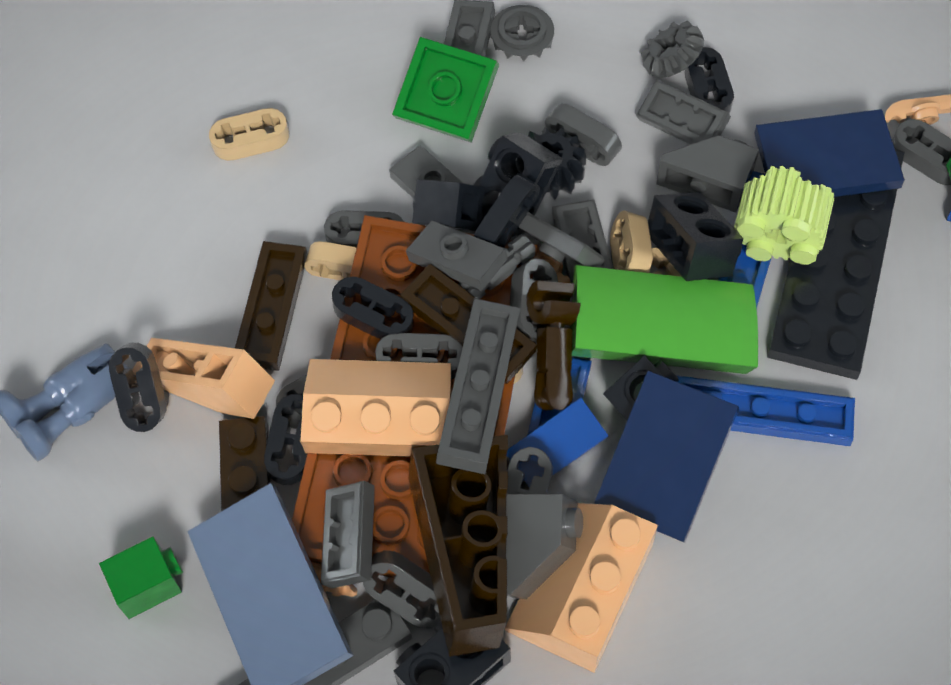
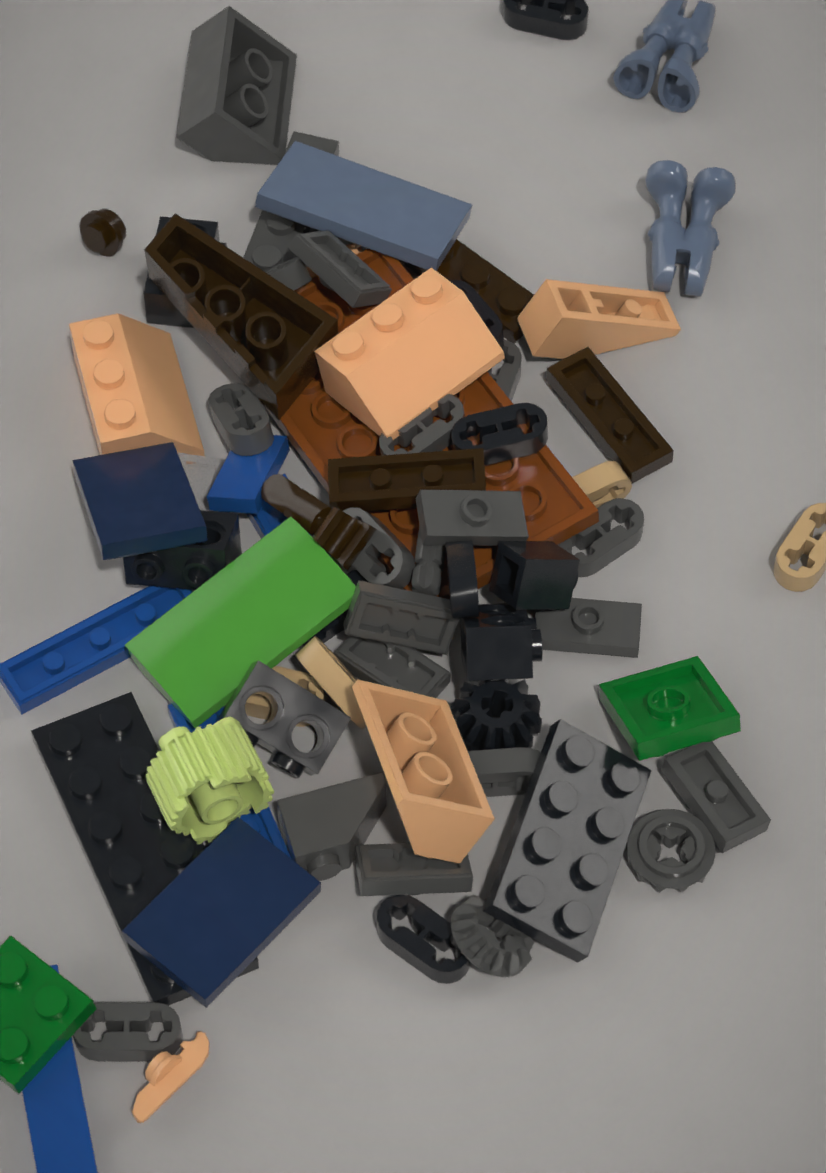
camera: 135 degrees right, 5 degrees down
(127, 389) = (632, 265): black beam -> none
(142, 576) = (476, 166): green brick -> none
(478, 387) = (333, 402): dark grey plate -> none
(538, 538) = (194, 370): dark grey slope -> none
(579, 64) = (568, 841): none -> plate
(637, 130) = (426, 770): none -> light nougat slope

